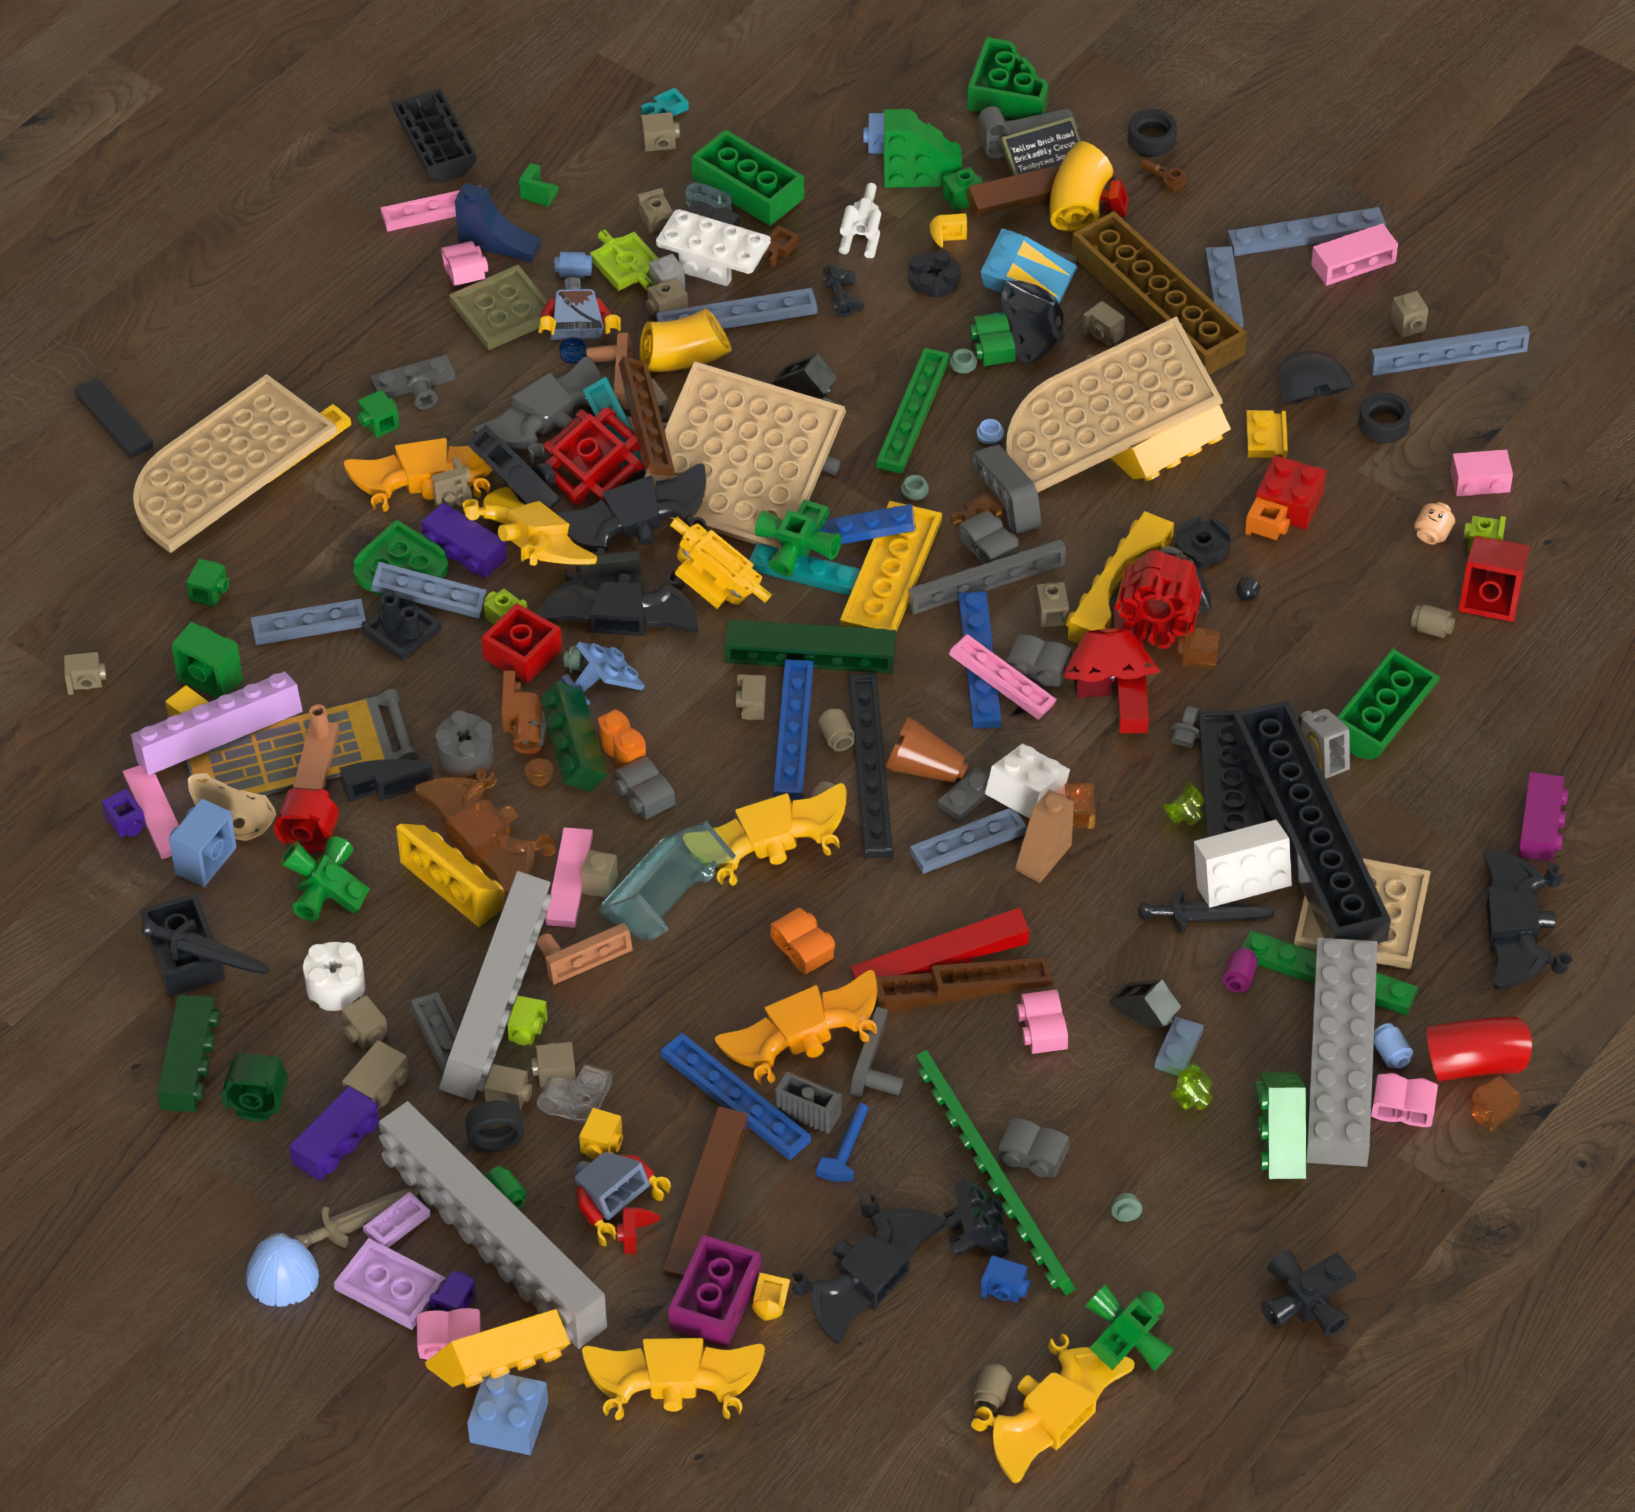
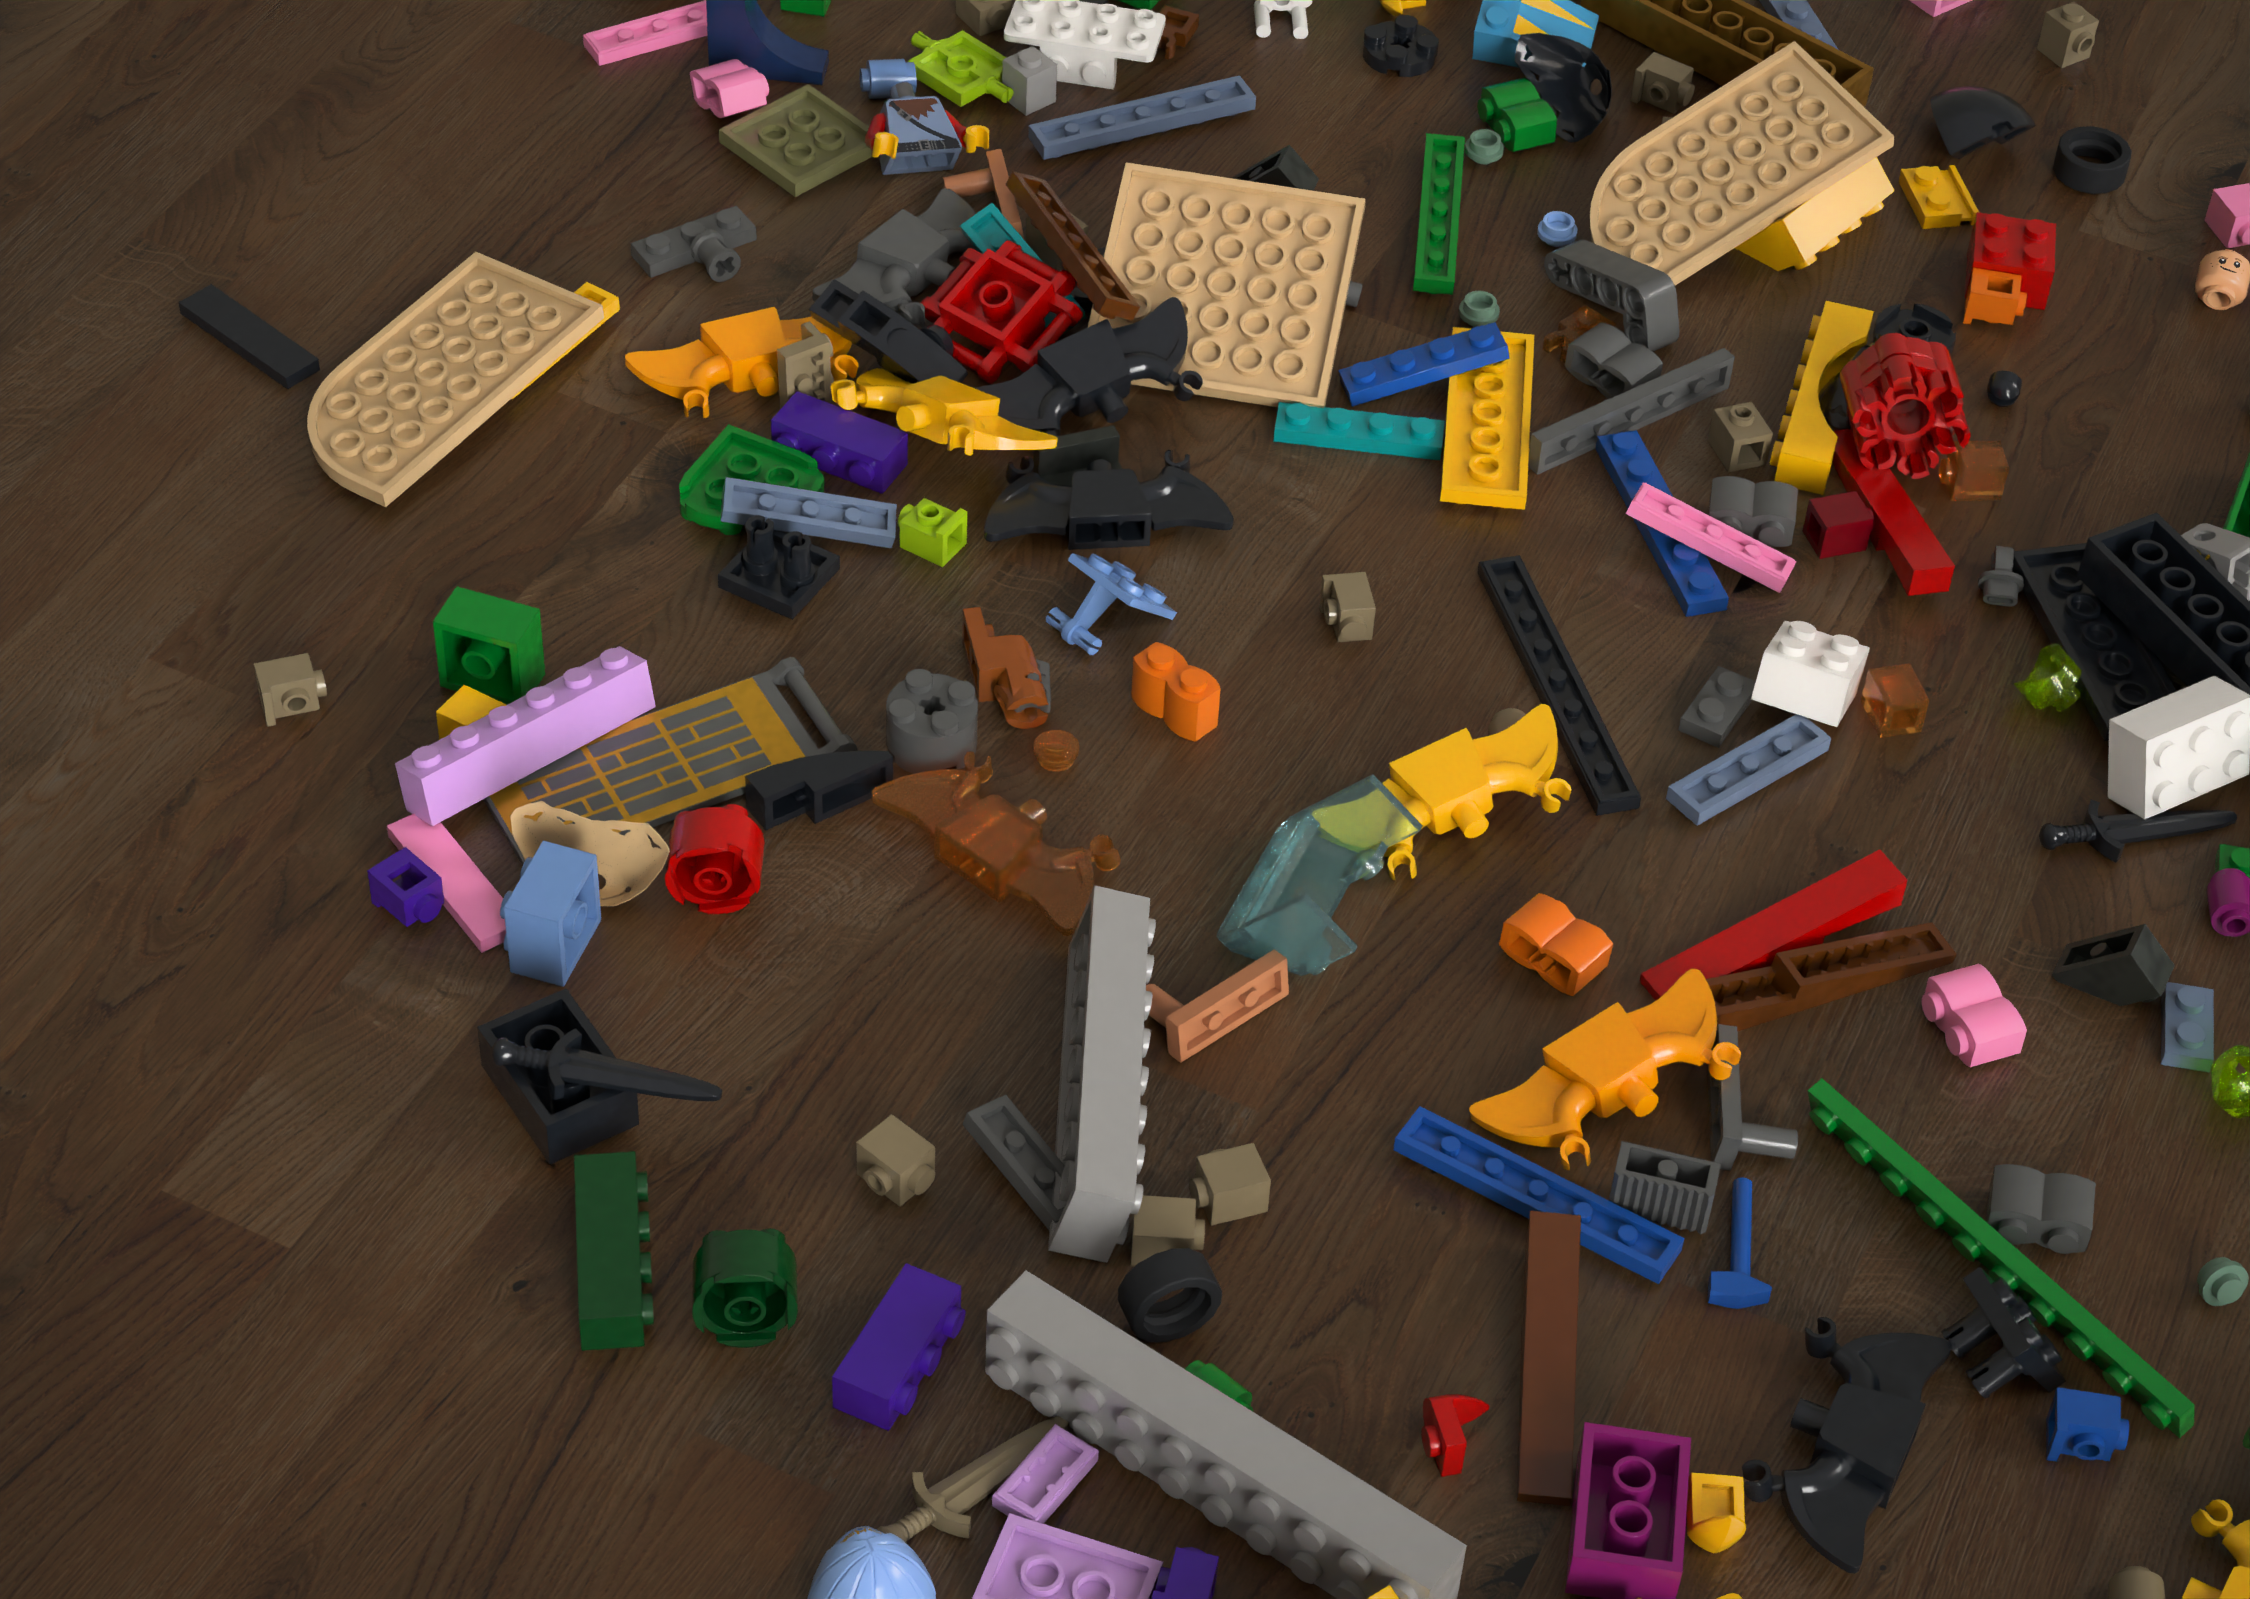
camera: 15 degrees left, 5 degrees down
(207, 582) = (456, 541): green brick -> none
(308, 621) = (629, 578): sand blue plate -> none
(317, 750) = (698, 752): nougat piece -> none
(324, 878) = (766, 943): green brick -> none
(334, 975) = (824, 1091): white brick -> none
(378, 414) = (658, 290): green brick -> none
(378, 1073) = (945, 1235): dark tan brick -> none
(449, 873) = (966, 914): yellow slope -> none
(522, 643) = (976, 567): red brick -> none
(526, 1020) = (1165, 1120): lime brick -> none
(567, 878) = (1153, 875): bright pink tile -> none
(572, 350) = (919, 186): clear blue tile -> none
(573, 736) = (1099, 690): dark green brick -> none
(574, 659) = (1059, 586): sand green plate -> none
(577, 1097) = (1280, 1233): clear piece -> none
(599, 874) = (1205, 884): dark tan brick -> none
(601, 1134) = (1345, 1286): yellow brick -> none
(610, 1185) = (1392, 1365): sand blue torso -> none
(644, 788) = (1231, 752): dark grey brick -> none
(666, 297) = (1037, 103): dark tan brick -> none
(680, 342) = (1083, 153): yellow brick -> none
(715, 567) = (1239, 433): yellow piece -> none
(793, 729) = (1426, 643): blue plate -> none
(798, 535) = (1345, 381): green brick -> none
(825, 645) = (1410, 529): dark green brick -> none
(836, 729) = (1492, 637): dark tan brick -> none
(843, 301) = (1288, 89): black piece -> none
(925, 754) = (1641, 654): dark orange cone -> none
(1046, 836) = (1874, 743): medium nougat slope -> none
(1109, 652) = (1861, 482): red piece -> none
(1449, 350) = (2139, 72): sand blue plate -> none

